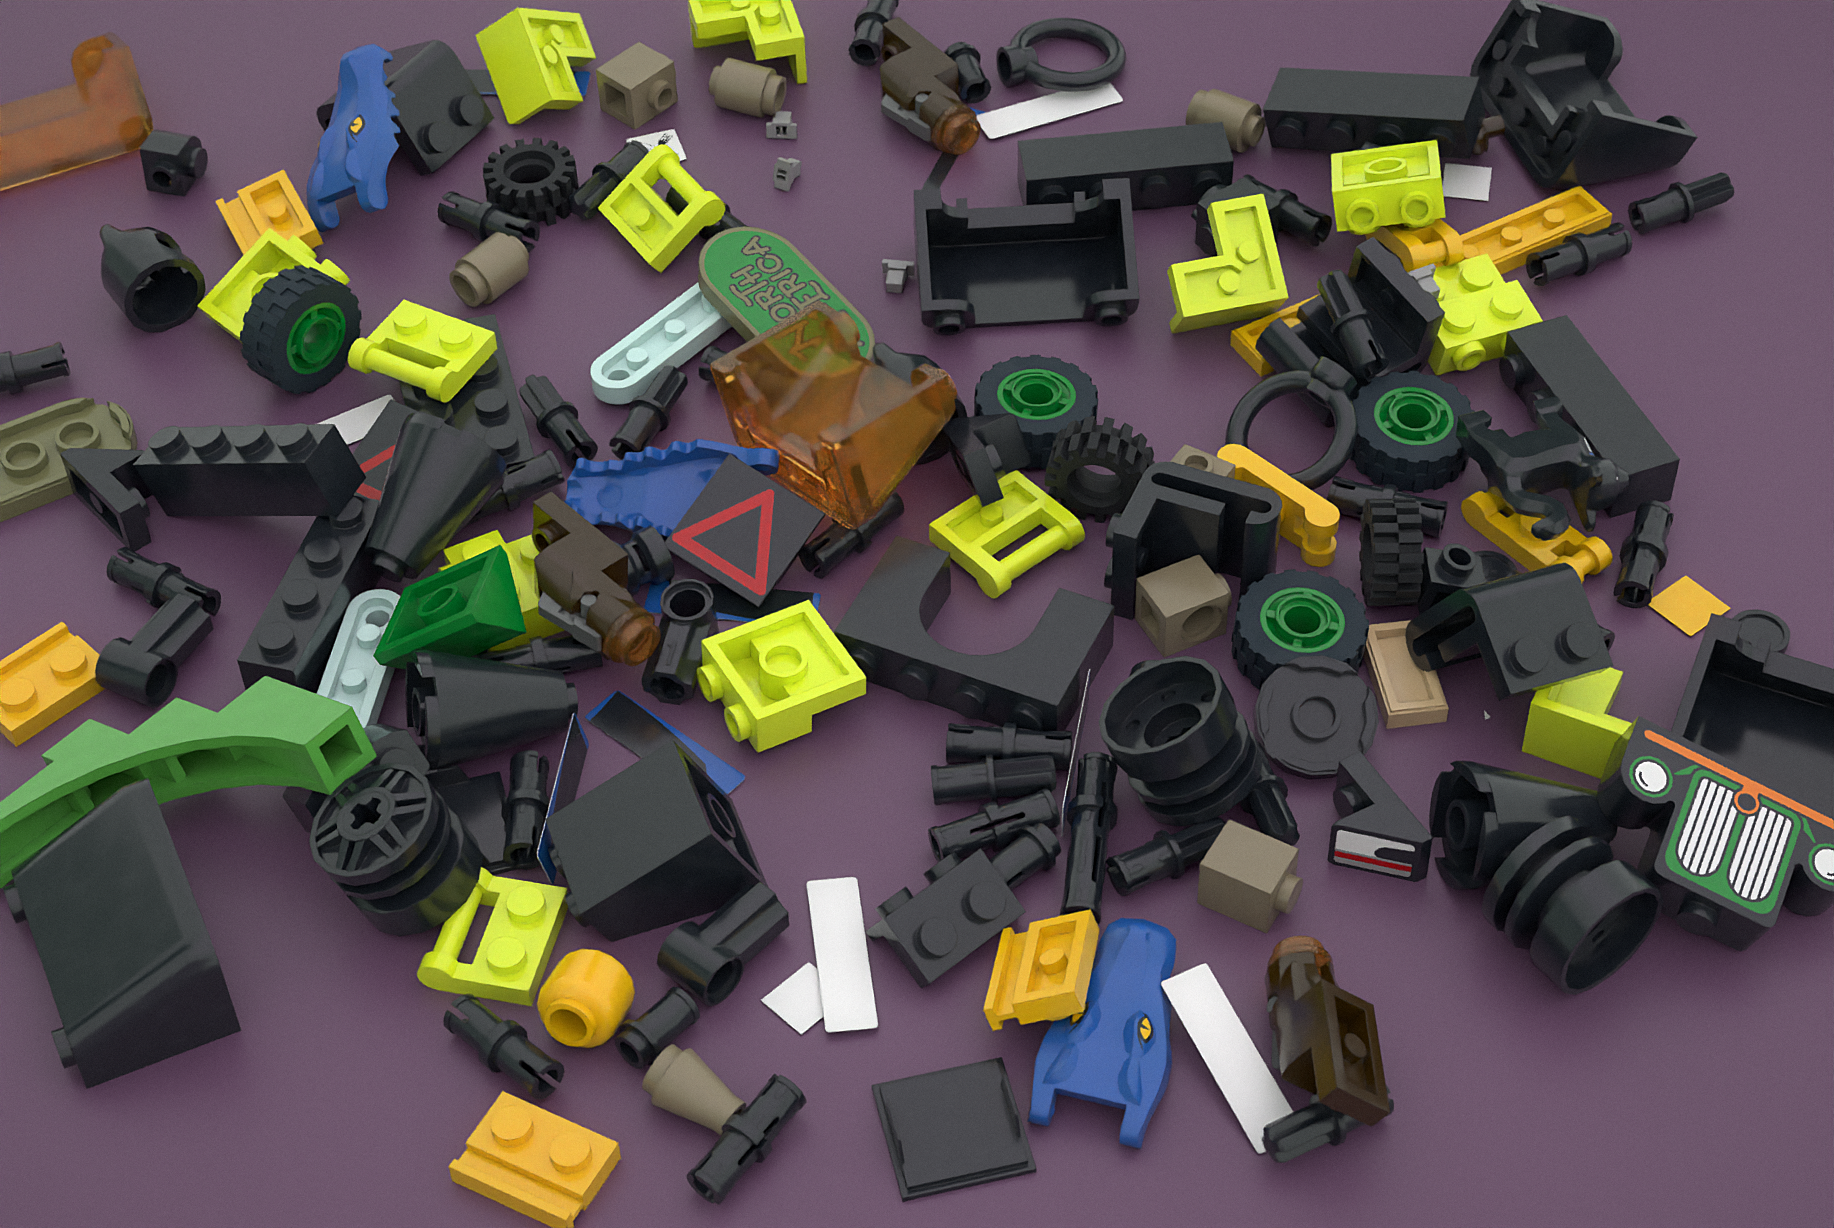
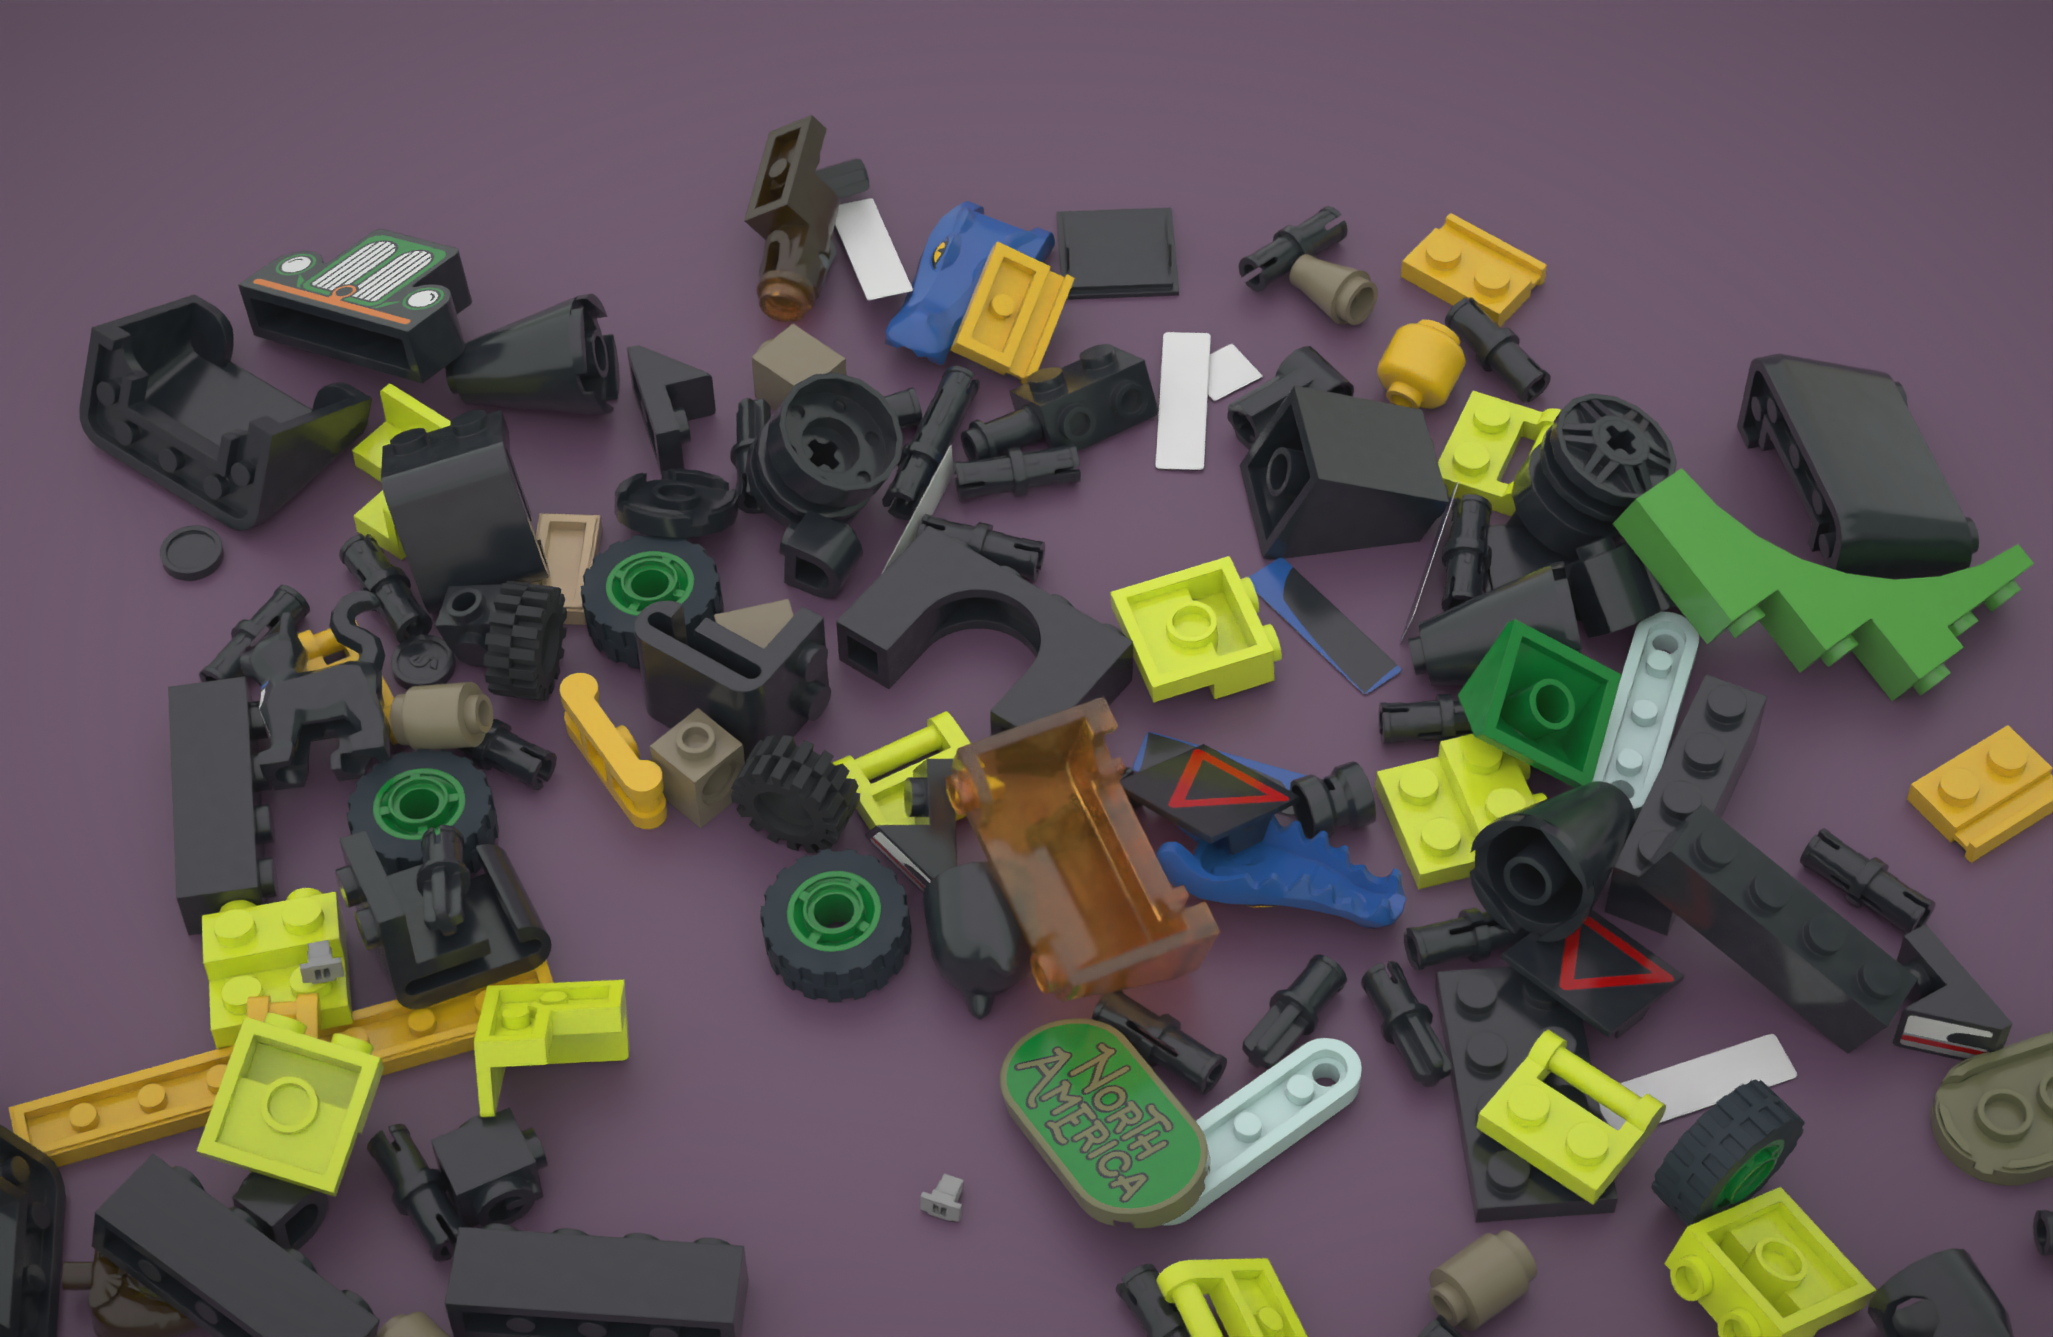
camera: 170 degrees left, 5 degrees up
(149, 662) = (1868, 780): black piece -> none
(585, 585) = (1390, 730): dark brown plate -> none
(646, 1037) = (1360, 344): black pin -> none
(685, 621) = (1291, 700): black piece -> none
(992, 779) = (1005, 510): black axle -> none
(1026, 261) = (776, 1162): black windscreen -> none
(1328, 386) = (504, 833): black piece -> none
(1428, 469) = (441, 716): none -> dark tan brick
(1572, 904) = (530, 257): black wheel -> none
(1578, 254) = (88, 1047): black pin -> none
(1687, 605) = (235, 599): yellow sticker -> none

